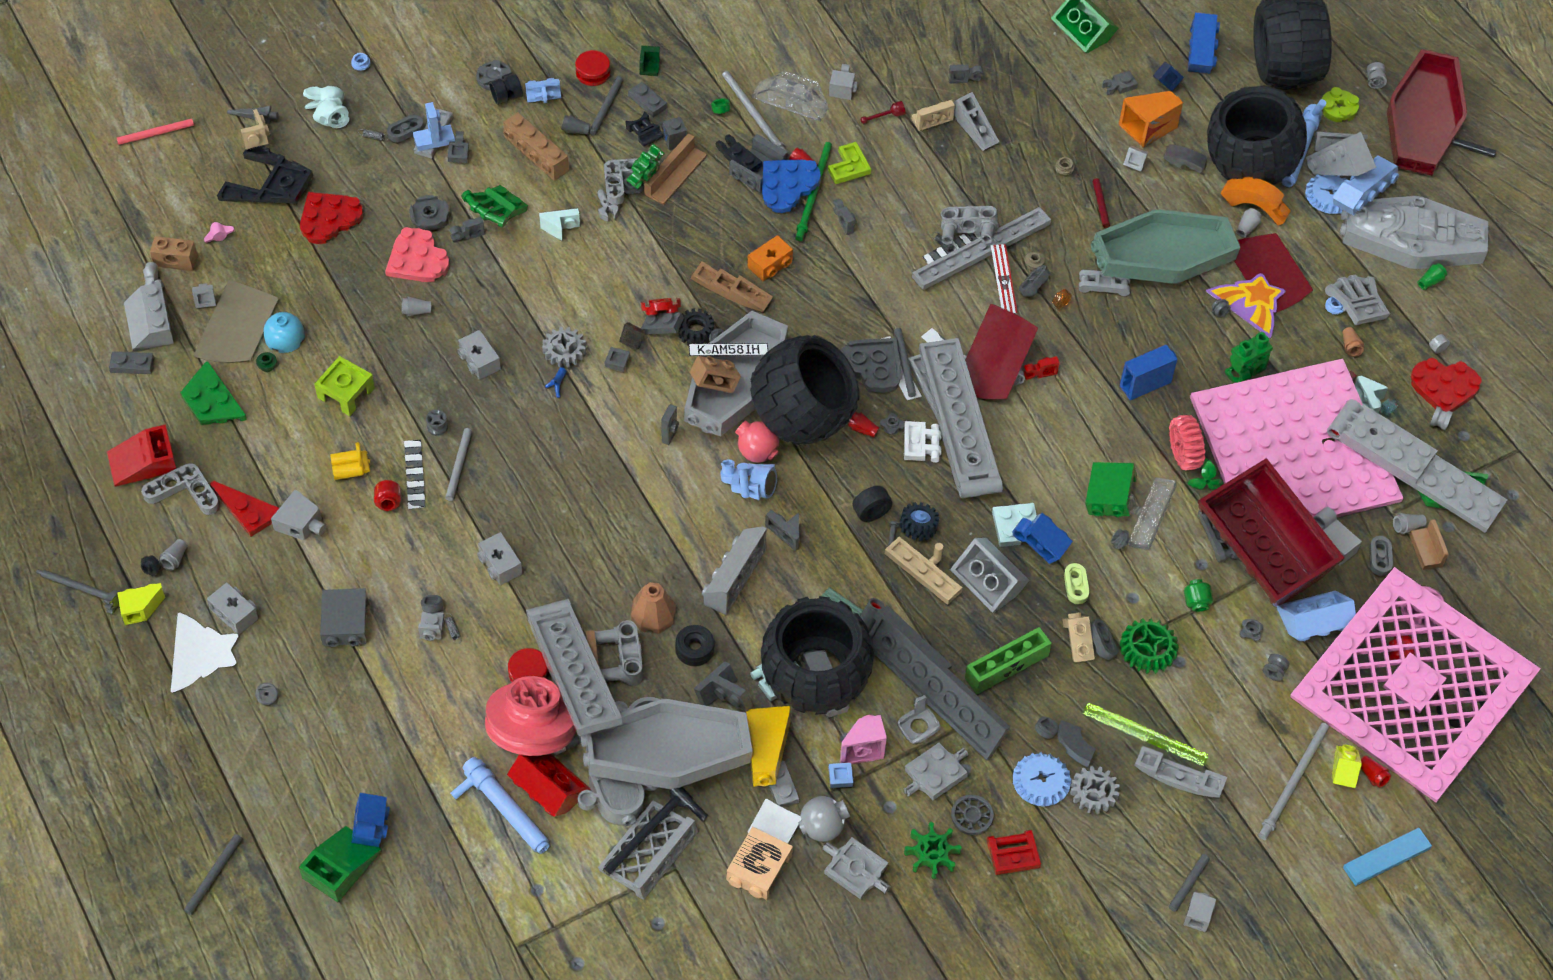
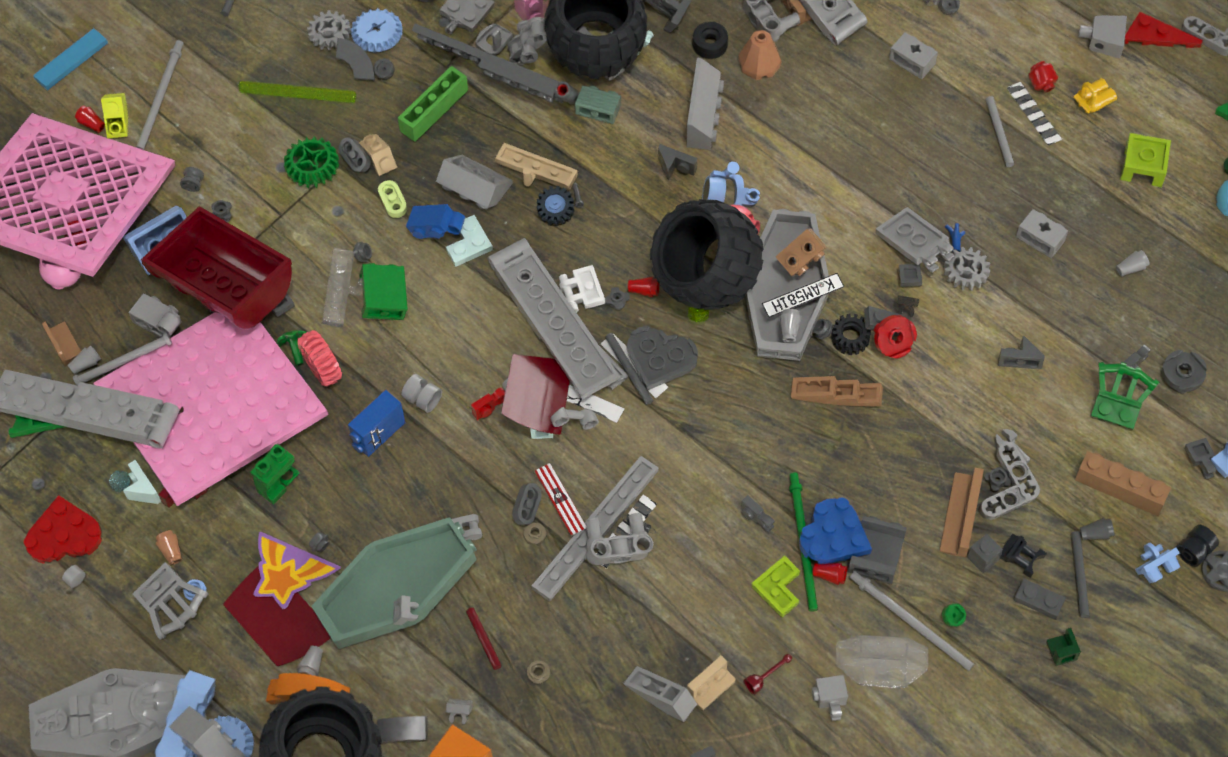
camera: 165 degrees right, 5 degrees up
(417, 257) = (1166, 320): coral plate -> none
(436, 417) = (1045, 155): dark grey wheel -> none
(555, 221) = (1049, 401): light aqua slope -> none
(560, 261) = (1026, 357): none -> dark grey slope
(592, 68) = (1121, 614): red head -> none
(597, 384) = (916, 239): none -> light grey tile
(645, 166) = (988, 473): green gear -> none
(669, 424) = (824, 213): dark grey plate -> none
(738, 153) = (903, 554): black hinge -> none
(751, 328) = (790, 324): none -> light grey cone
(770, 258) = (808, 445): orange brick -> none
(872, 503) = (604, 202): black tyre -> none
(892, 689) = (530, 37): none -> light grey axle
(987, 314) = (586, 417): none -> light grey bar
(1062, 298) = (491, 492): clear orange tile -> none
(1098, 390) = (424, 394): none -> light grey wheel
(1165, 206) = (402, 612): none -> light grey tile
(1179, 776) = (256, 67): light grey slope -> none
(1198, 595) = (276, 220): green head -> none
(1373, 506) = (123, 359): none -> light grey bar
(1381, 557) = (108, 319): dark grey plate -> none
(1433, 275) = (89, 663): green cone -> none
(1441, 418) = (63, 484): light grey wheel -> none

